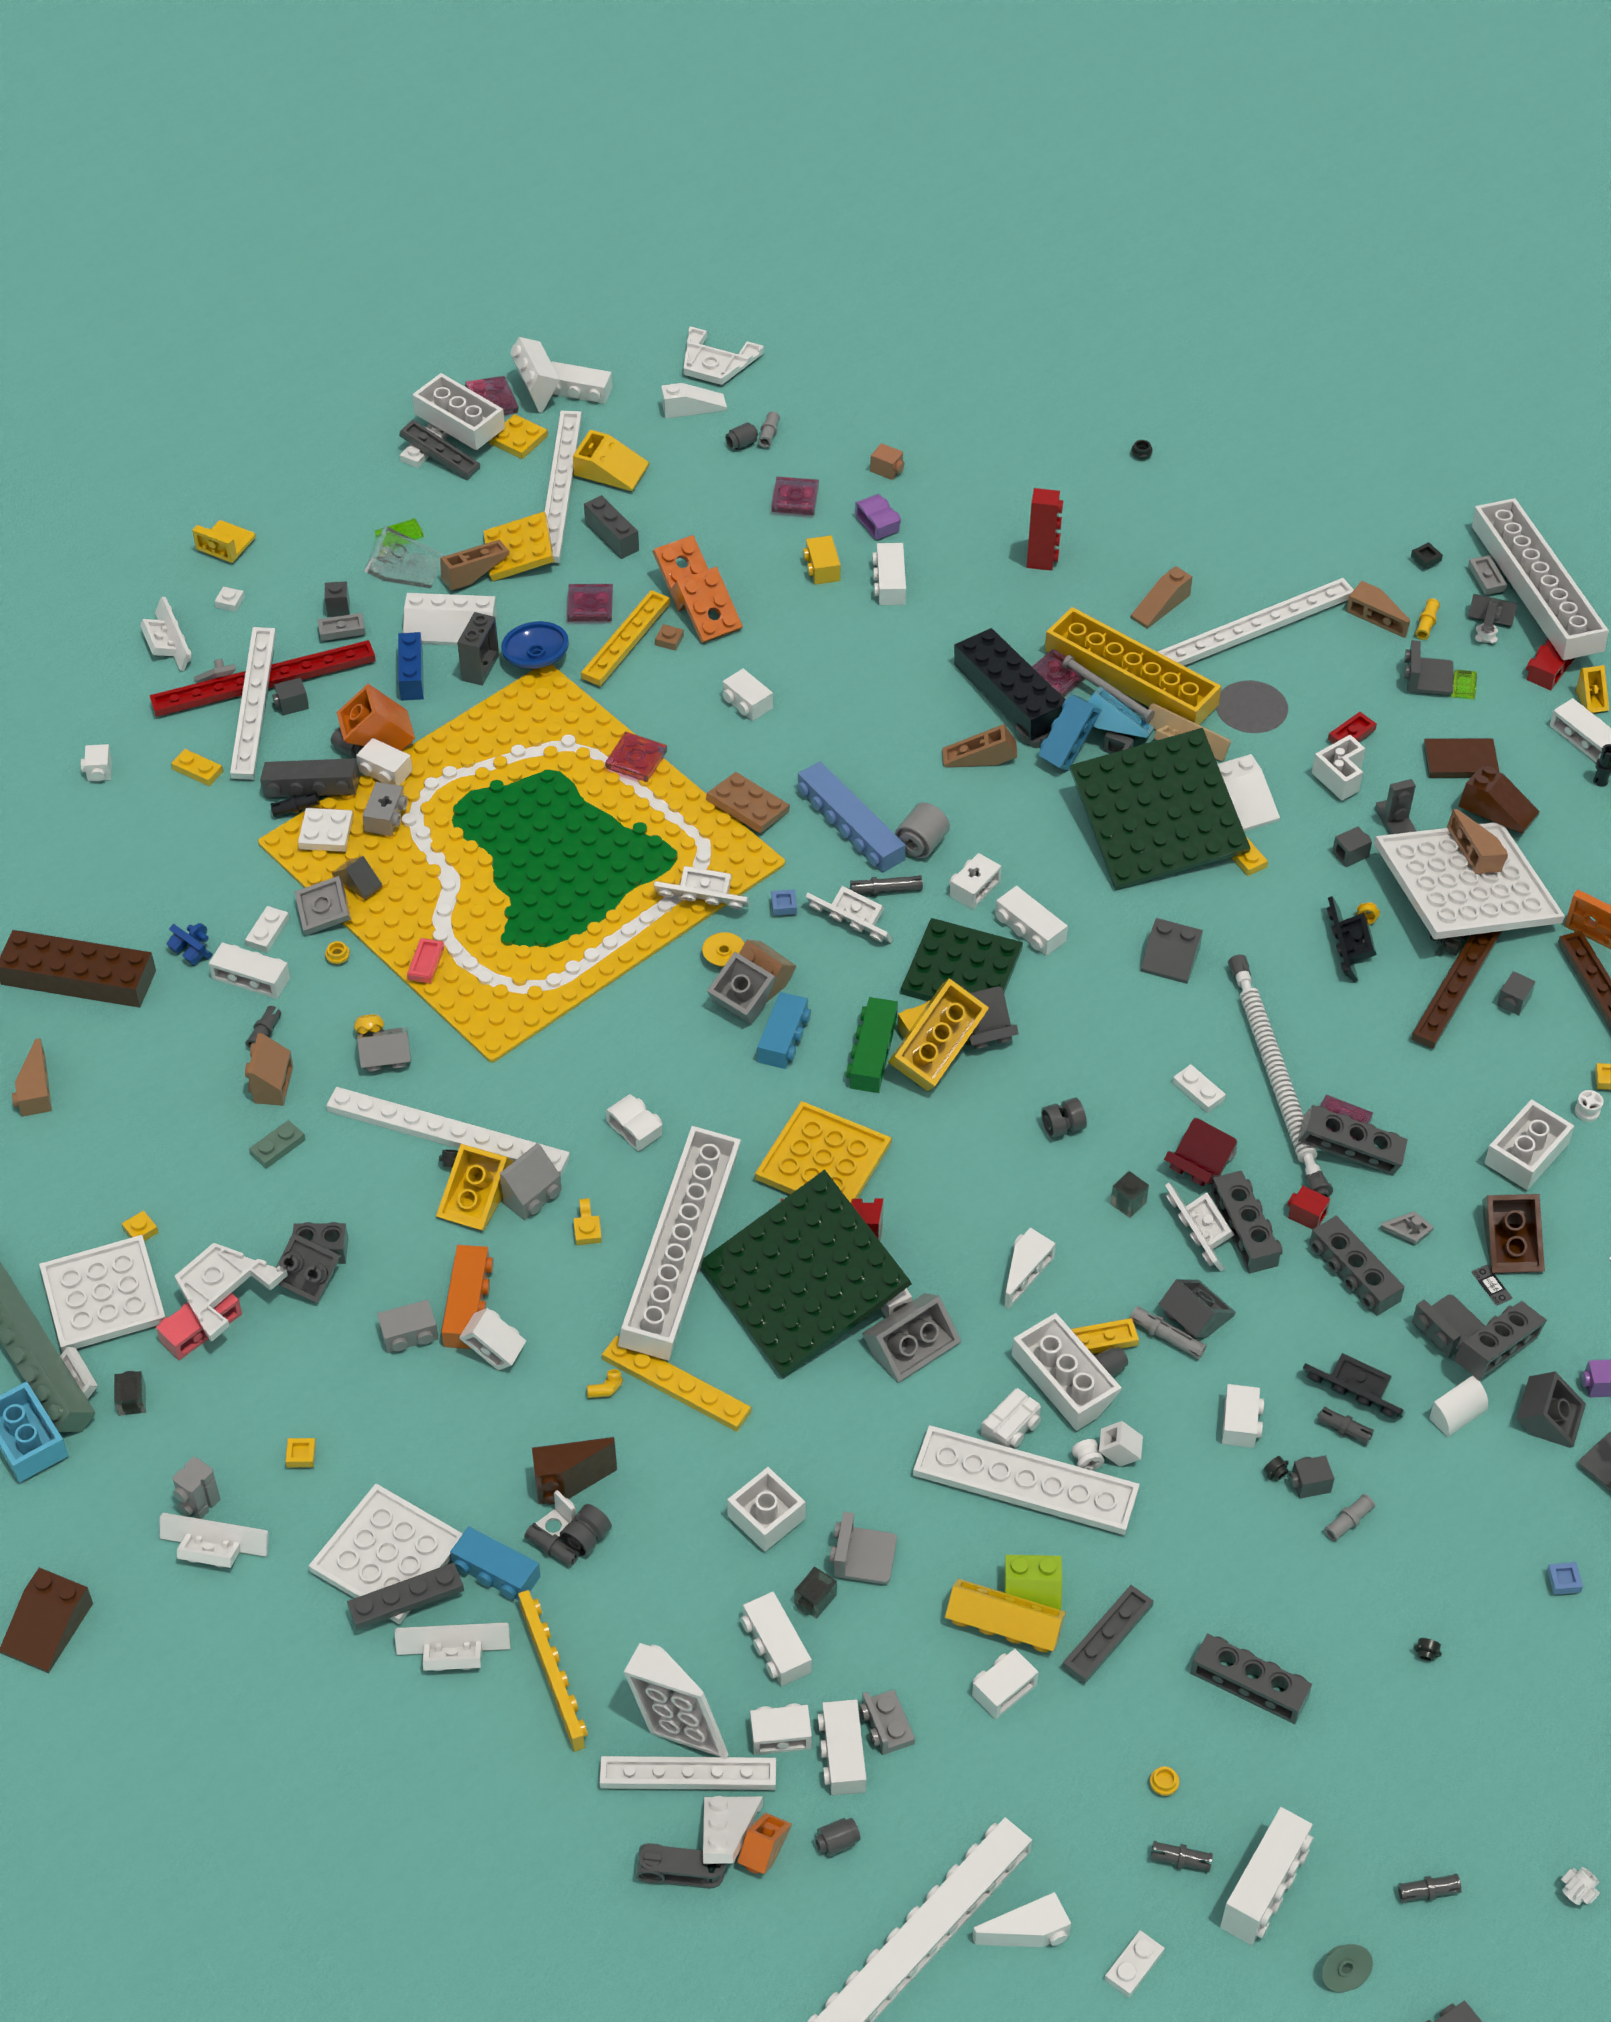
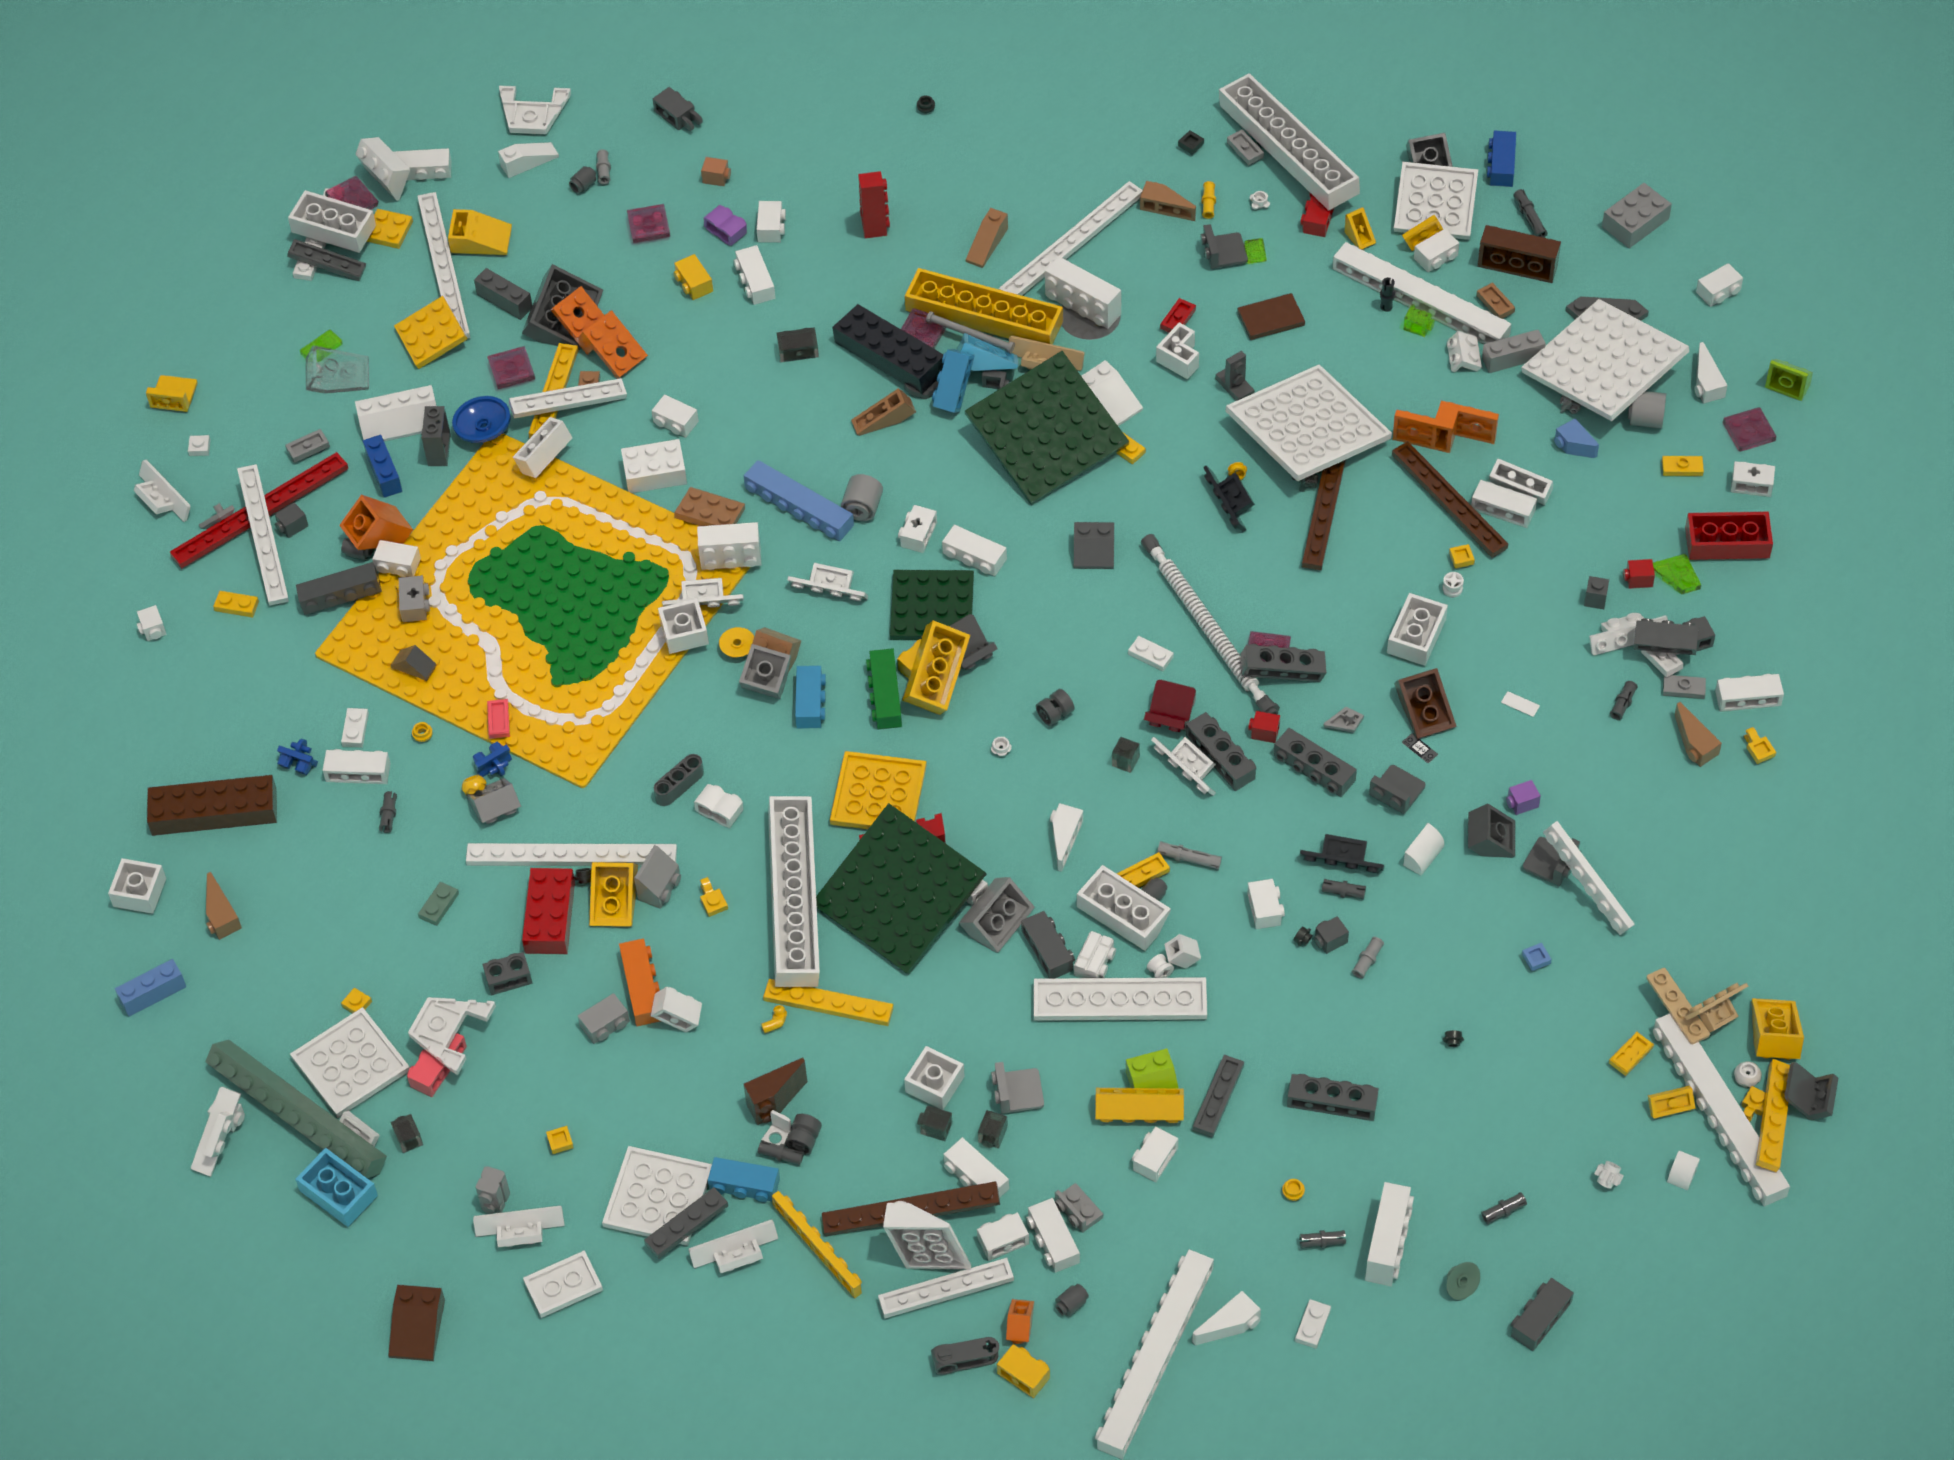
camera: 15 degrees left, 5 degrees up
(234, 1626) = (563, 1284): none -> white plate
(268, 1071) = (409, 847): medium nougat slope -> none
(295, 804) = (334, 614): black pin -> none
(307, 1267) = (508, 993): dark grey plate -> none
(322, 905) = (394, 695): light grey plate -> none
(325, 829) = (370, 629): white plate -> none
(337, 599) = (294, 421): dark grey brick -> none
(394, 1186) = (548, 911): none -> red brick
(401, 1005) = (493, 762): none -> blue hips
(470, 564) = (397, 360): medium nougat slope -> none
(588, 688) = (542, 447): none -> white brick
(599, 1081) = (682, 771): none -> dark grey beam
(636, 646) = (567, 398): none -> white plate
(636, 756) = (603, 496): clear pink plate -> none
(640, 565) = (555, 286): none -> dark grey slope
(668, 914) = (683, 626): none -> white brick
(695, 1661) = (935, 1203): none -> reddish brown plate
(703, 740) = (654, 466): none -> white brick
(726, 1826) = (989, 1316): white wing -> none
(746, 1909) = (1023, 1370): none -> yellow brick
(749, 1564) = (935, 1123): none -> clear smoke brick
(752, 842) = (729, 546): none -> white brick
(784, 902) = (770, 589): medium blue plate -> none
(868, 391) = (676, 109): none -> dark grey hinge
(897, 884) = (843, 553): dark grey pin -> none
(910, 655) = (797, 344): none -> clear smoke brick
(927, 524) = (770, 221): none -> white brick
(960, 1390) = (1047, 945): none -> dark grey brick
(985, 1140) = (1001, 742): none -> white plate
(1195, 1308) = (1204, 830): dark grey slope -> none
(1250, 678) = (1082, 292): none -> white brick
(1352, 846) = (1208, 417): dark grey brick -> none
(1477, 844) = (1307, 391): medium nougat slope -> none
(1492, 610) = (1259, 178): dark grey bracket -> none
(1497, 799) = (1311, 347): reddish brown slope -> none
(1499, 1339) = (1439, 790): dark grey brick -> none
(1516, 993) = (1371, 507): dark grey brick -> none

